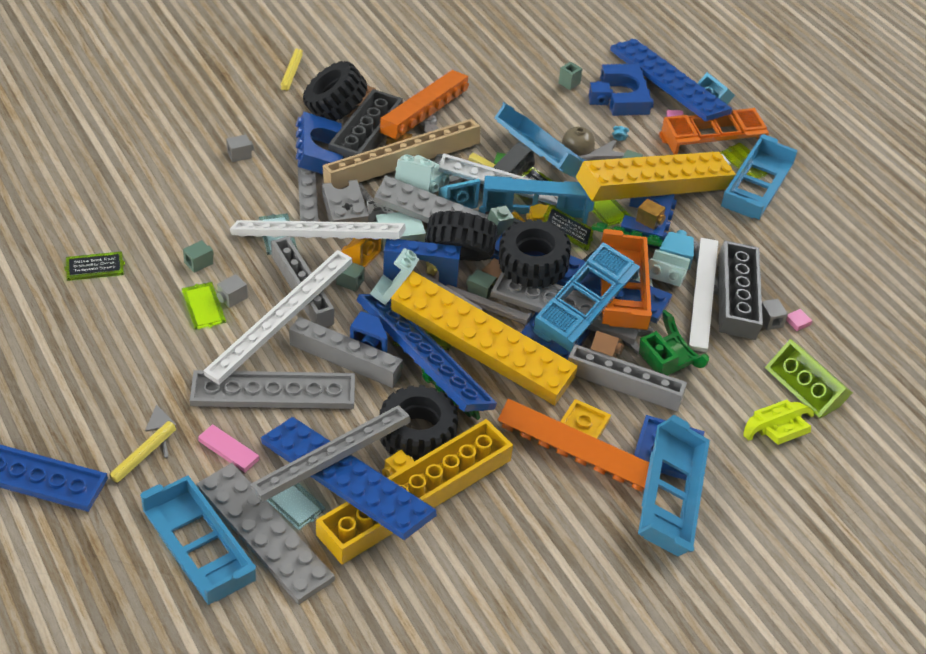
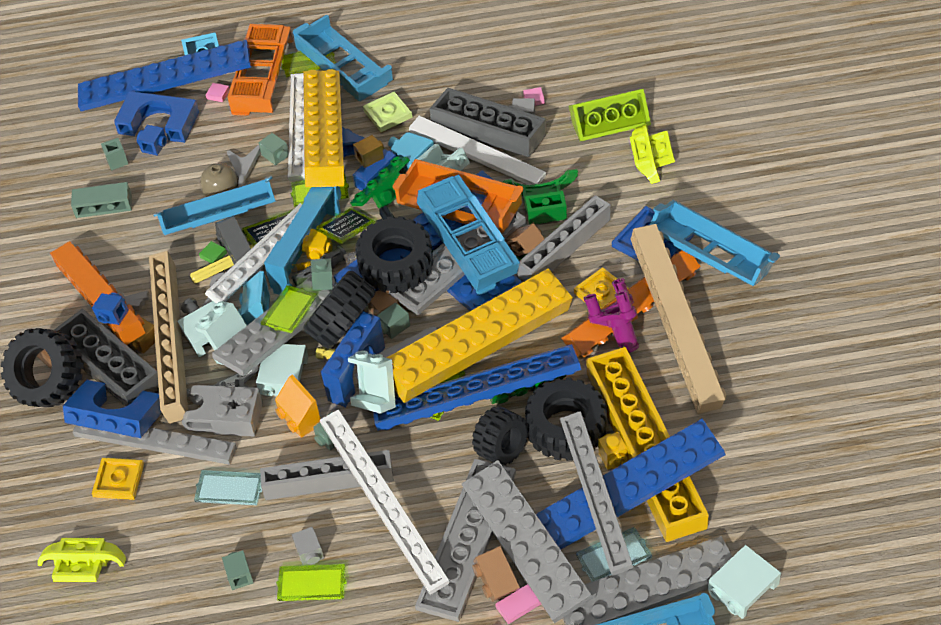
camera: 60 degrees left, 5 degrees up
(183, 171) = (80, 558): none -> neon yellow plate
(236, 413) = (495, 574): none -> medium nougat brick
(239, 148) = (70, 493): light grey brick -> none
(264, 171) = (118, 478): none -> yellow tile
(274, 426) = (527, 542): none -> light grey plate
(287, 601) = (743, 581): none -> light aqua panel
(318, 229) = (265, 438): white plate -> none
(346, 352) = (435, 464): light grey brick -> none
(369, 331) = (438, 430): blue slope -> none
(382, 366) = (500, 435): none -> black tyre
(398, 104) = (110, 308): none -> blue brick
(446, 204) = (288, 309): none -> clear neon green piece
(494, 307) = (425, 320): light grey axle -> none
(523, 84) = (101, 200): none -> sand green brick
(544, 428) = (616, 316): none -> magenta wheel
(564, 478) = (678, 319): none -> tan brick
(620, 133) = (222, 142): medium azure plate -> none
(716, 223) = (387, 111): none -> yellowish green plate

